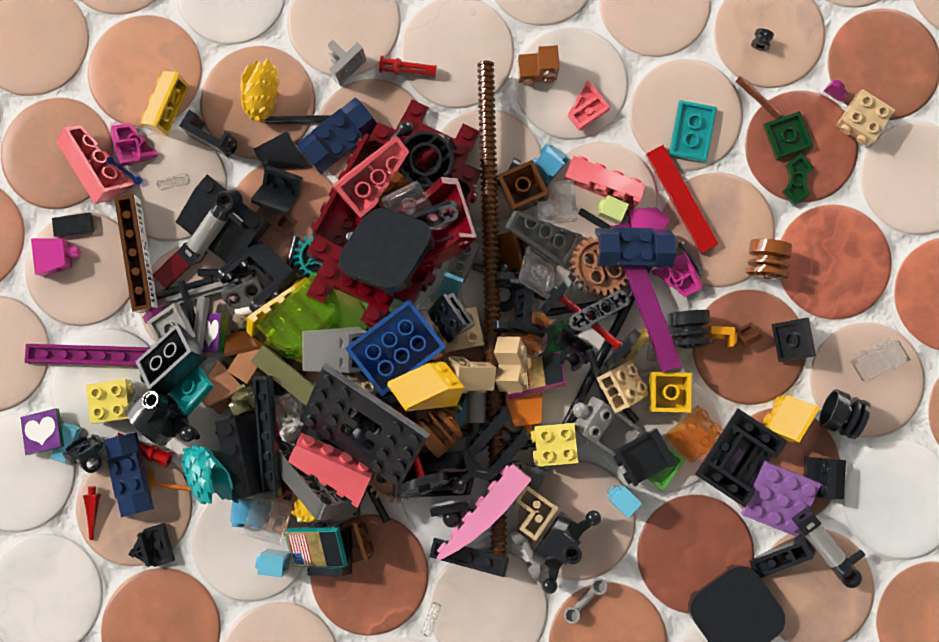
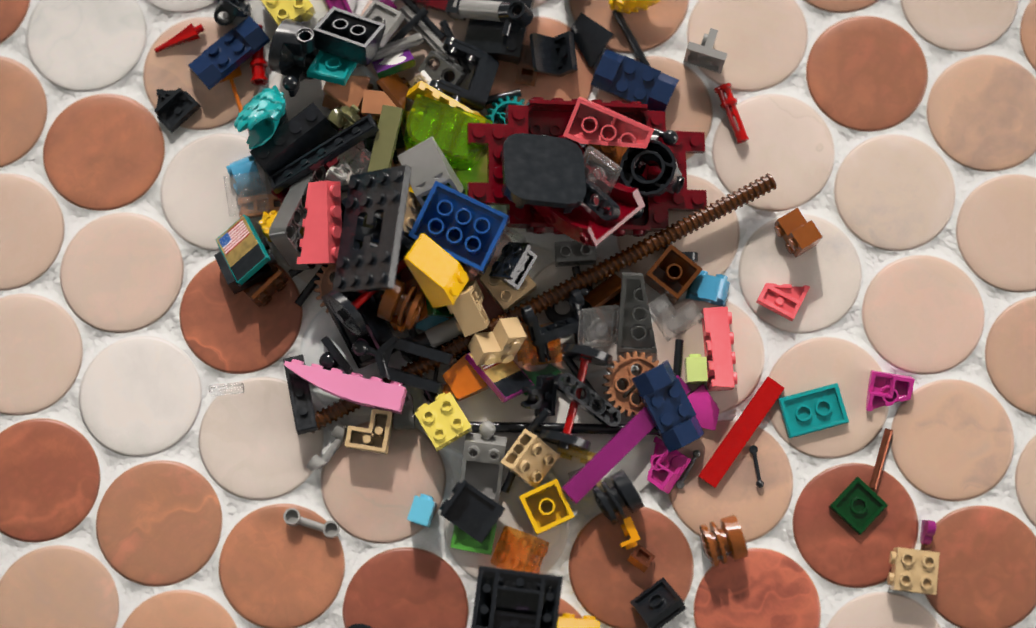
camera: 65 degrees right, 5 degrees down
(273, 563) = (210, 218): medium azure brick -> none
(450, 284) = (546, 252): medium azure tile -> none
(558, 539) = (354, 466): black piece -> none
(701, 196) = (753, 449): none -> black hinge
(704, 61) = (887, 388): none -> dark pink slope
(762, 39) = (939, 434): black wheel -> none
(797, 187) = (810, 538): dark green tile -> none

